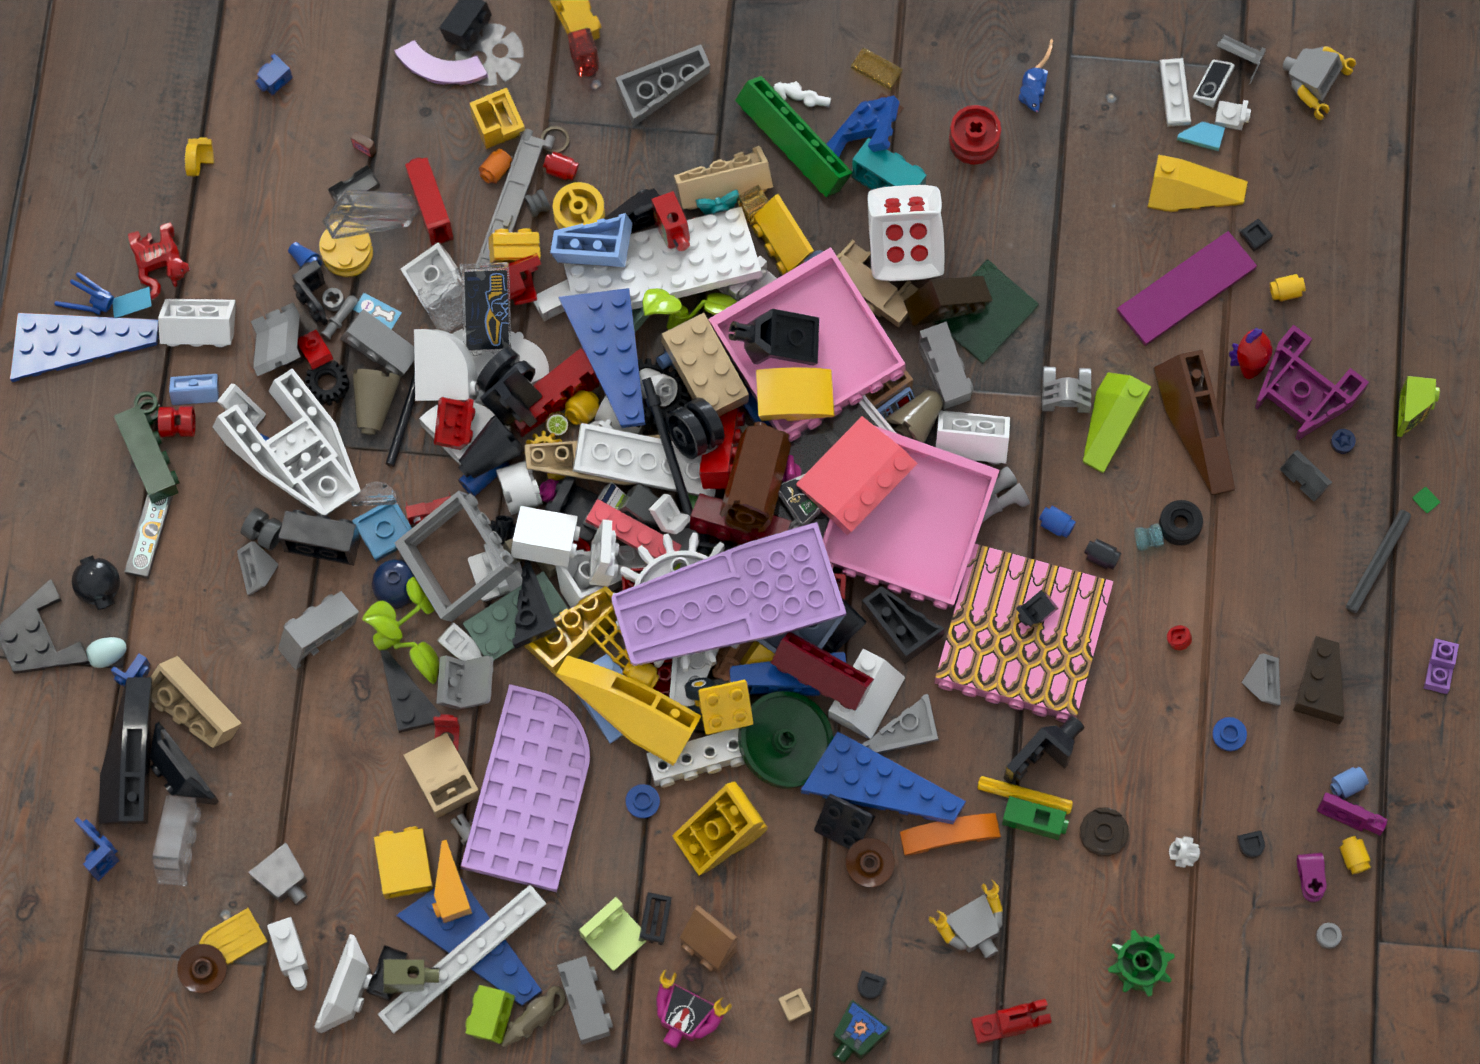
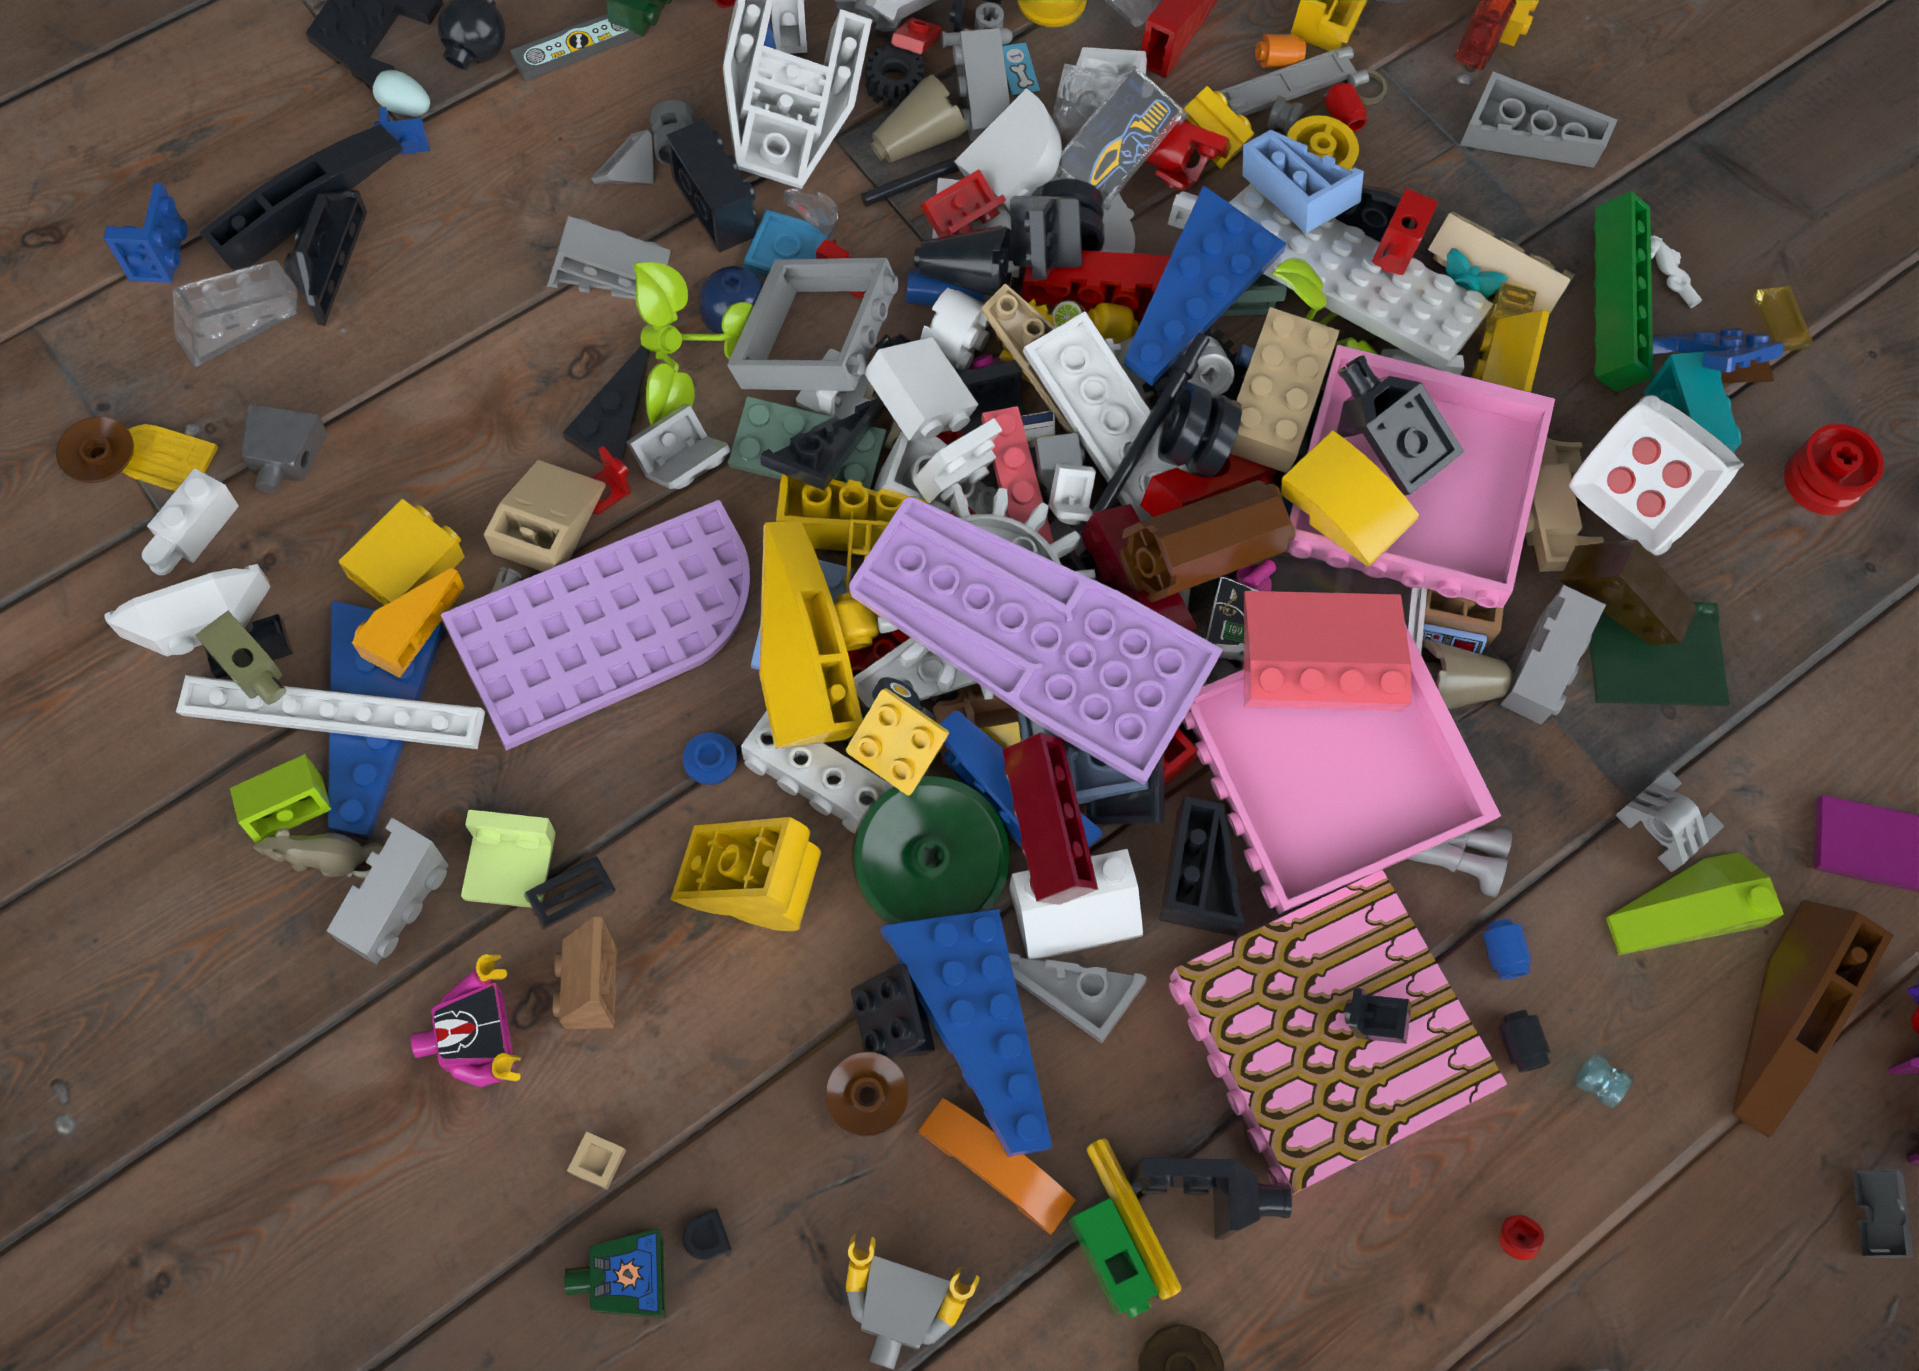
camera: 40 degrees right, 5 degrees down
(192, 703) = (412, 210): tan wedge -> none
(459, 643) = (722, 413): white plate -> none
(974, 436) = (1508, 762): white slope -> none
(1183, 509) = (1684, 1101): black tyre -> none

